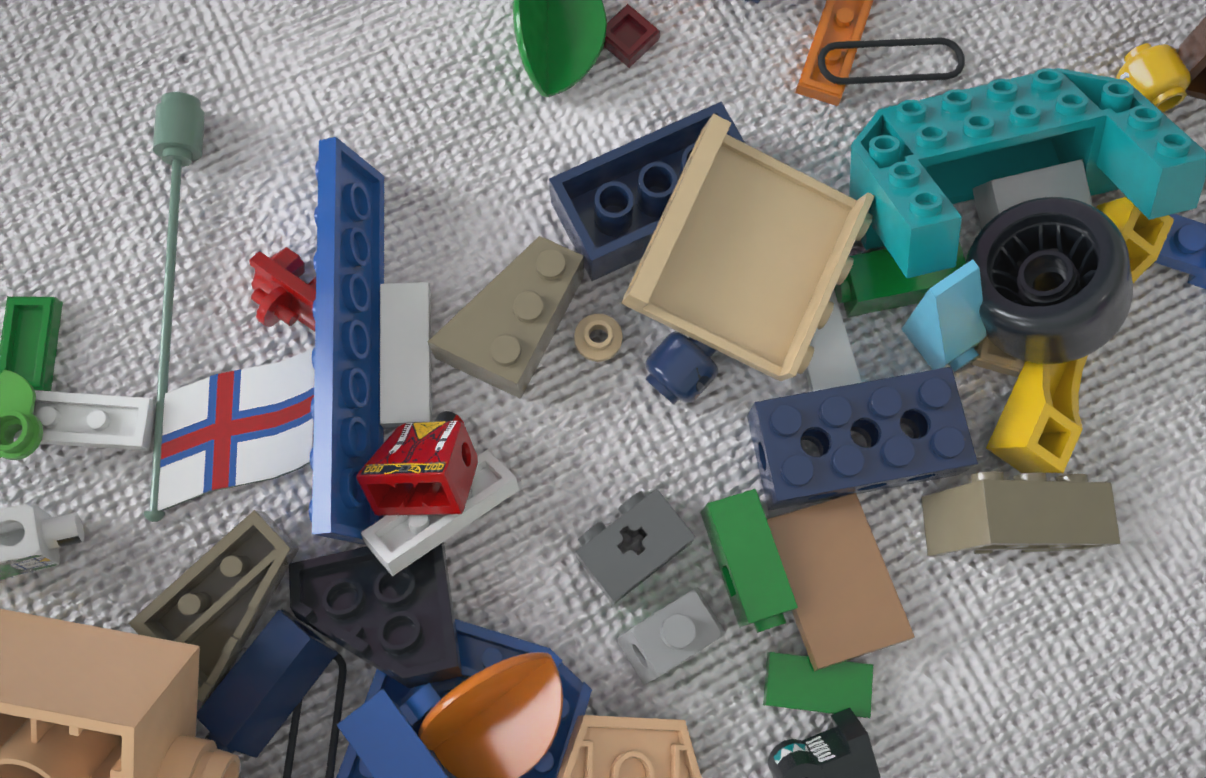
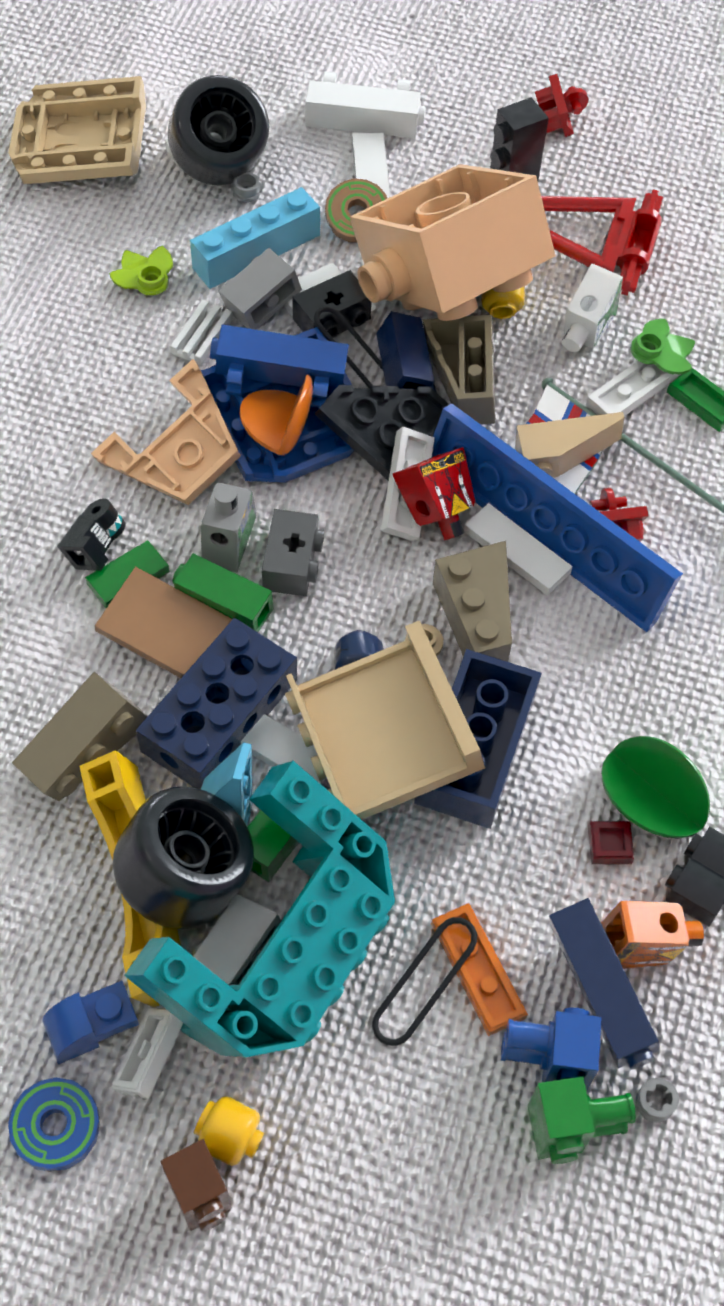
camera: 135 degrees right, 15 degrees down
(245, 408) = (567, 442): none -> tan slope

